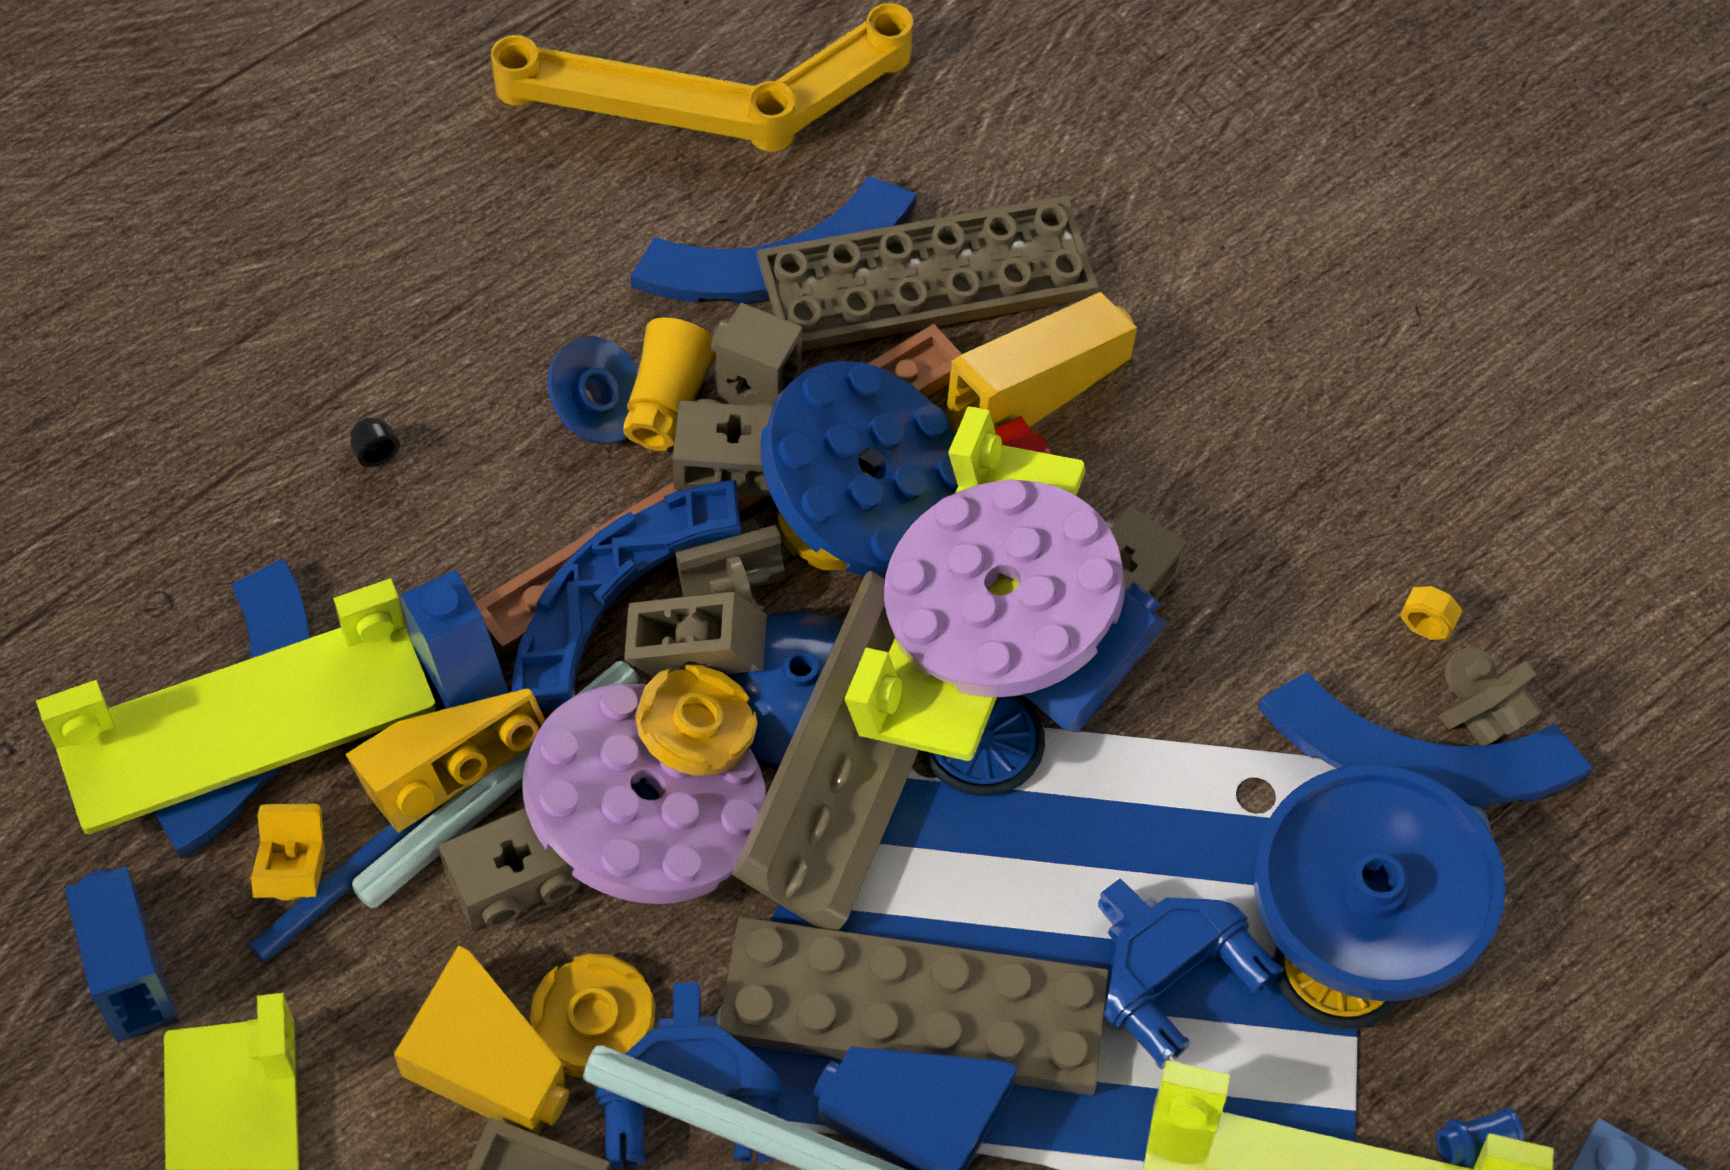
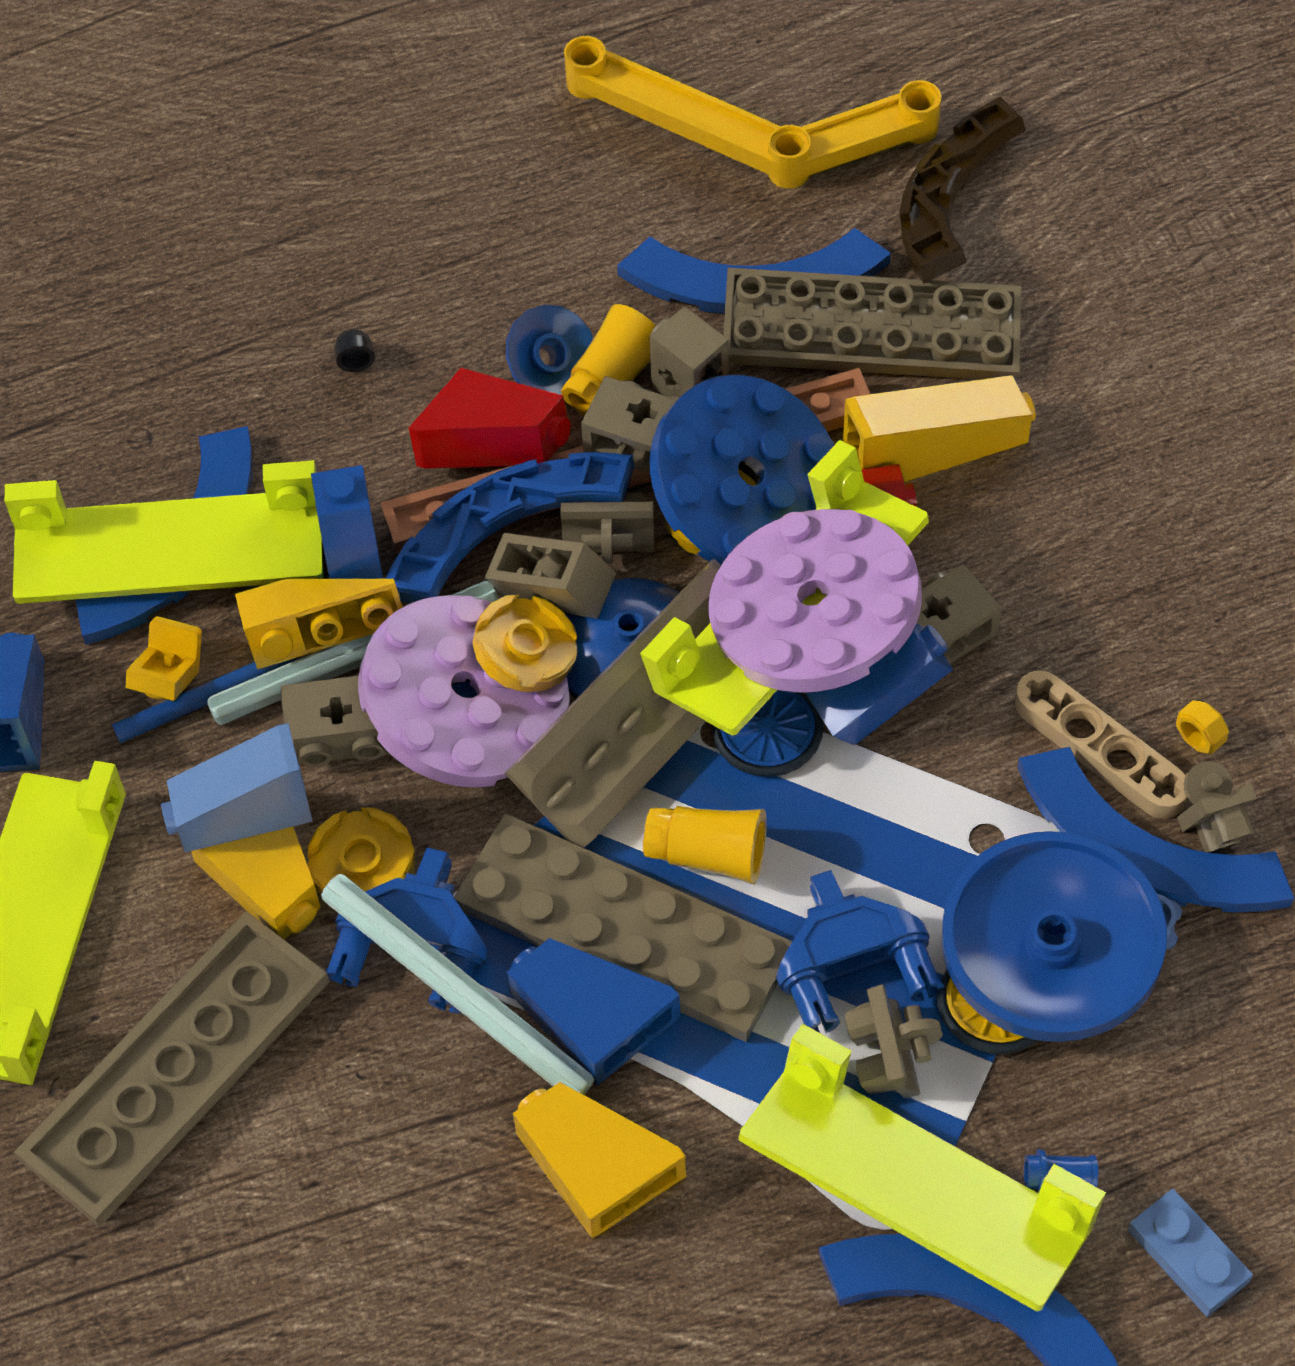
camera: 25 degrees right, 0 degrees up
(447, 985) = (239, 793): none -> medium blue slope
(562, 485) = (488, 424): none -> red slope
(936, 107) = (938, 178): none -> dark brown tile
(974, 883) = (708, 840): none -> yellow plant
(1264, 1078) = (883, 1021): none -> dark tan hips
(1338, 650) = (1107, 738): none -> tan beam

